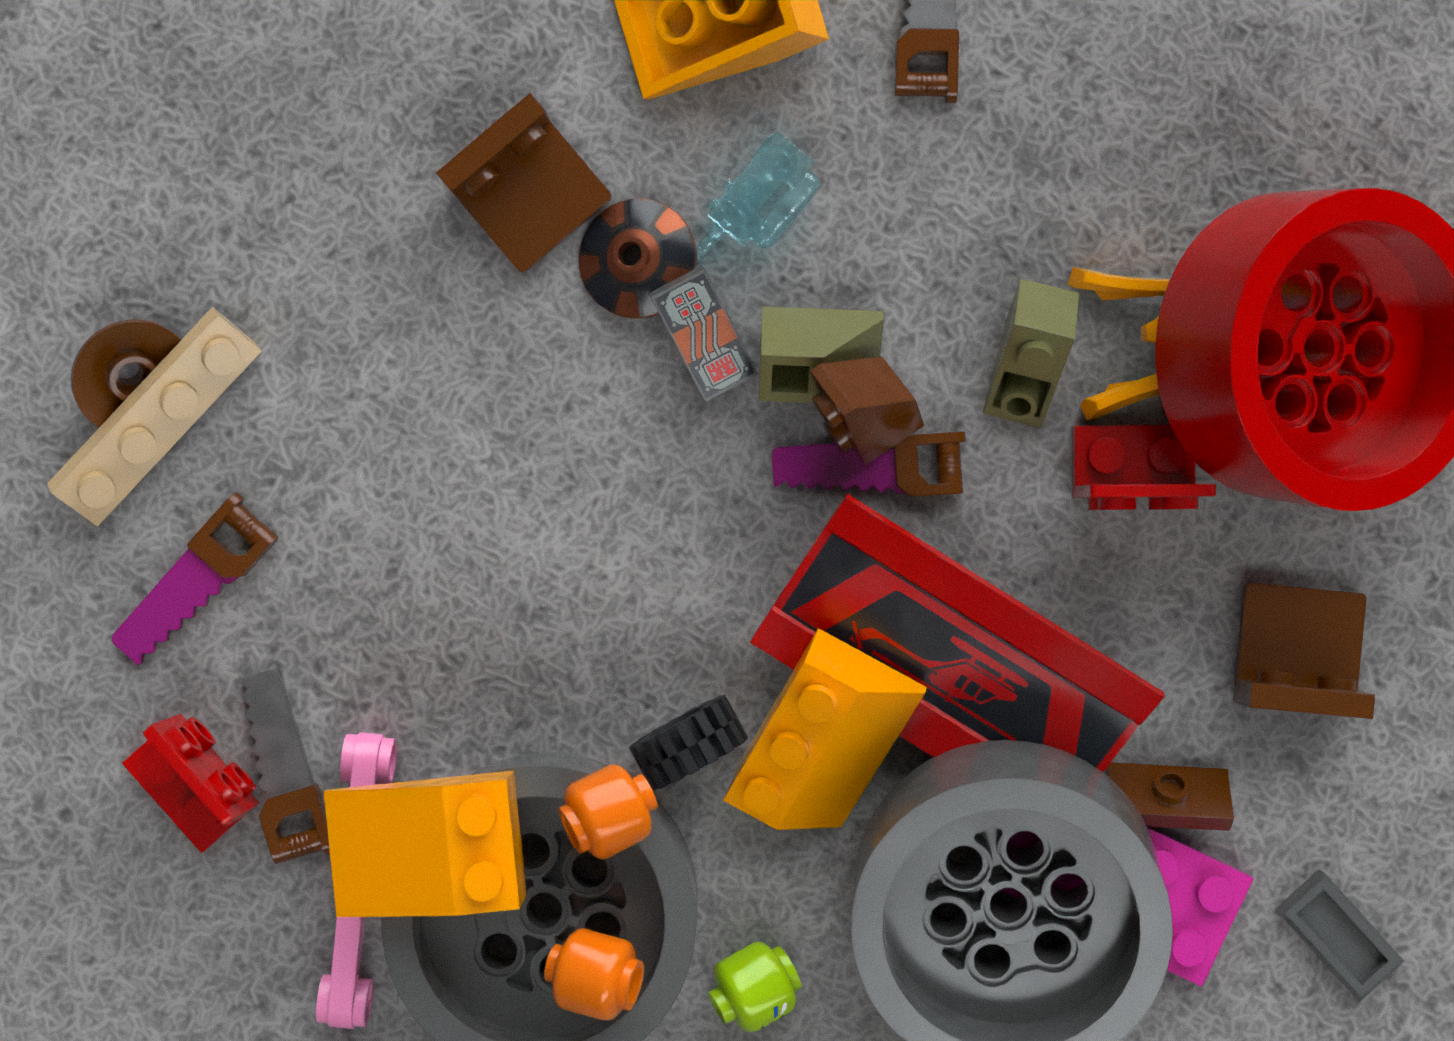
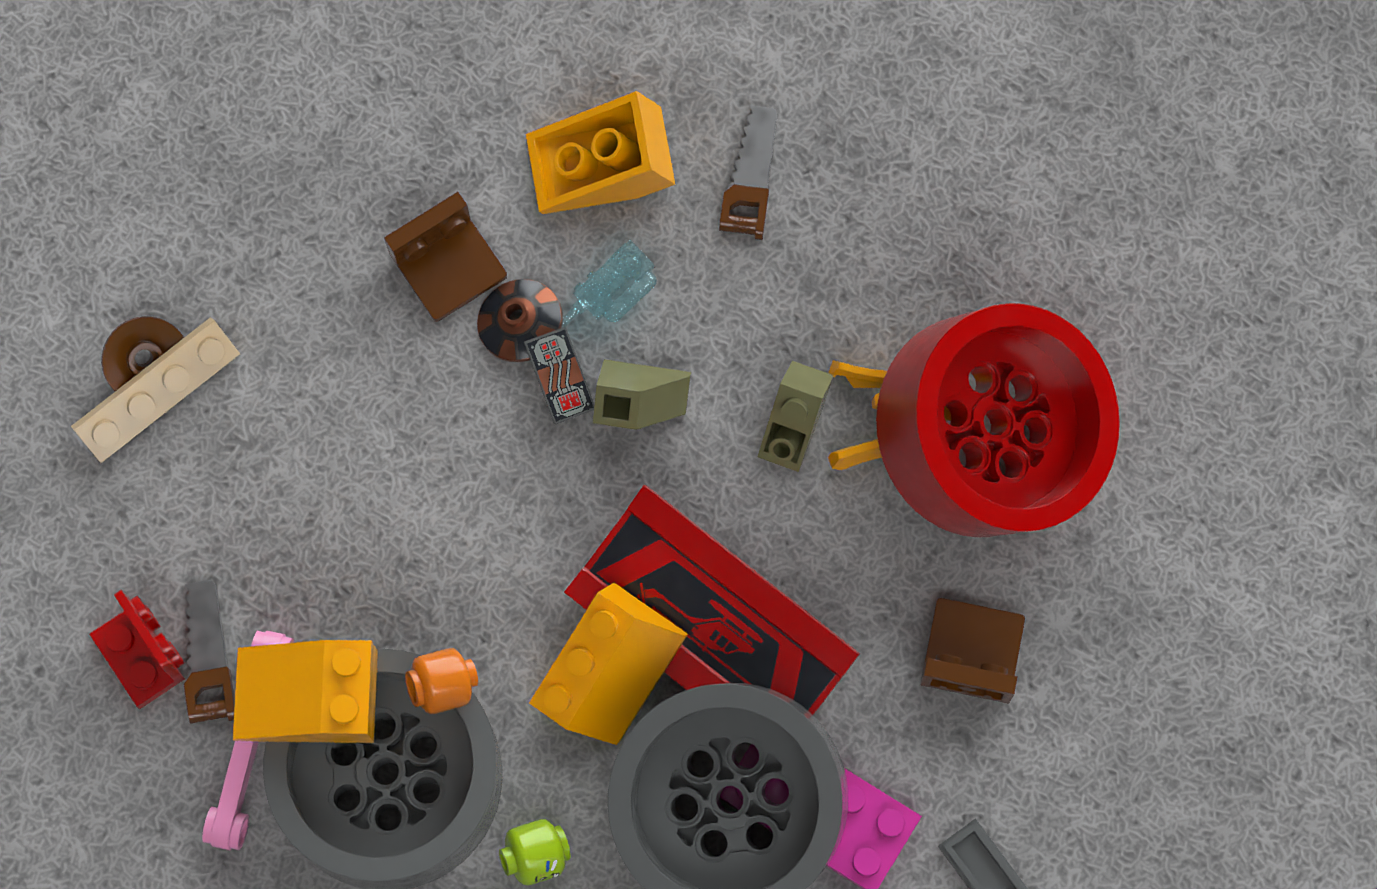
camera: 10 degrees right, 15 degrees down
(193, 579) = (164, 509): magenta piece -> none
(594, 974) = (415, 798): orange head -> none
(688, 742) = (510, 659): black tyre -> none
(864, 406) = (669, 434): reddish brown slope -> none
(893, 468) = (674, 483): piece -> none
(1132, 462) = (861, 504): red bracket -> none
(1177, 794) = (870, 746): reddish brown plate -> none

